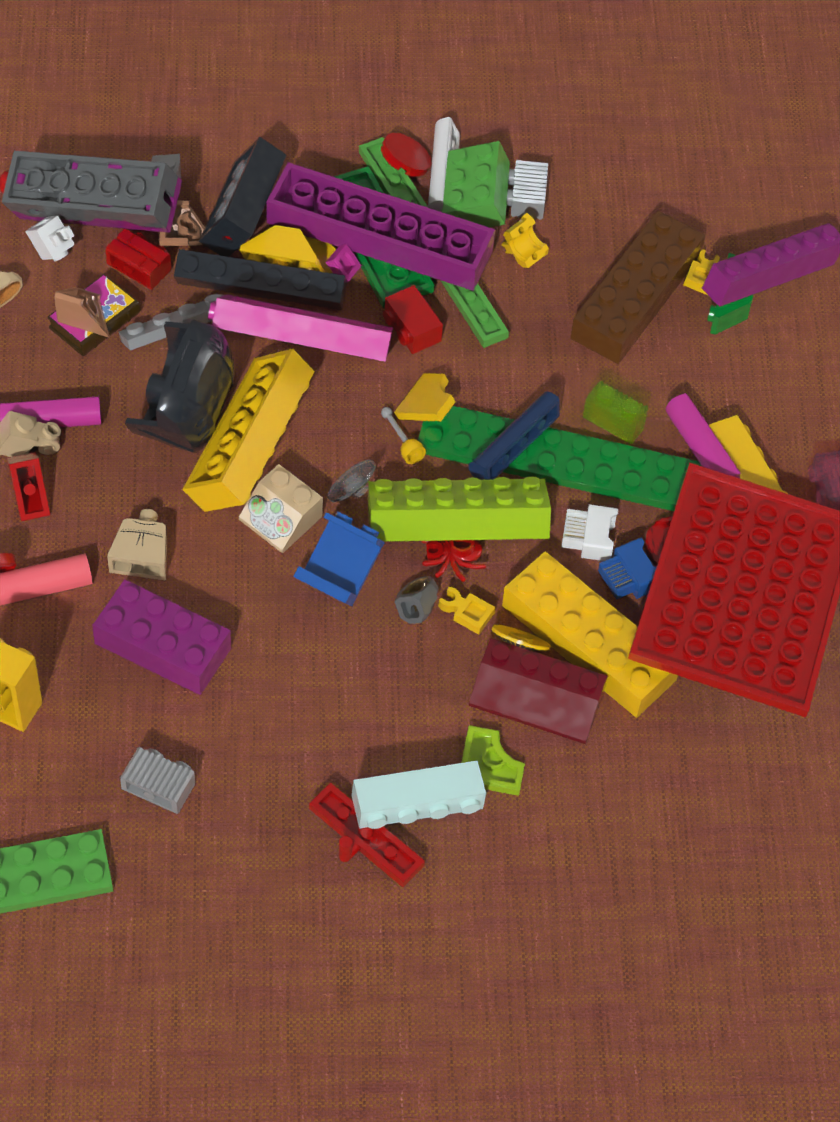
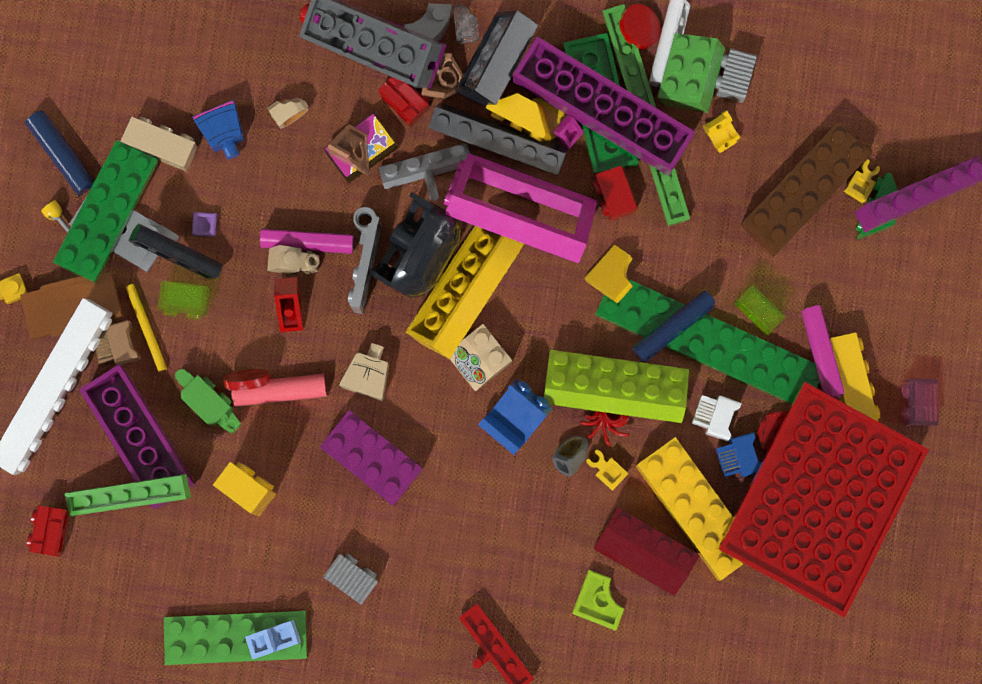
camera: 15 degrees right, 25 degrees up
(51, 238) = (335, 71): white brick -> none
(62, 865) = (273, 639): none -> light blue slope
(116, 391) = (369, 238): none -> light grey hinge
(199, 180) = (465, 25): none -> clear rock
(352, 482) = (538, 343): clear dish -> none
(411, 449) = (591, 316): yellow hinge -> none
(418, 795) = (539, 629): light aqua brick -> none
(520, 638) = (642, 505): yellow dish -> none

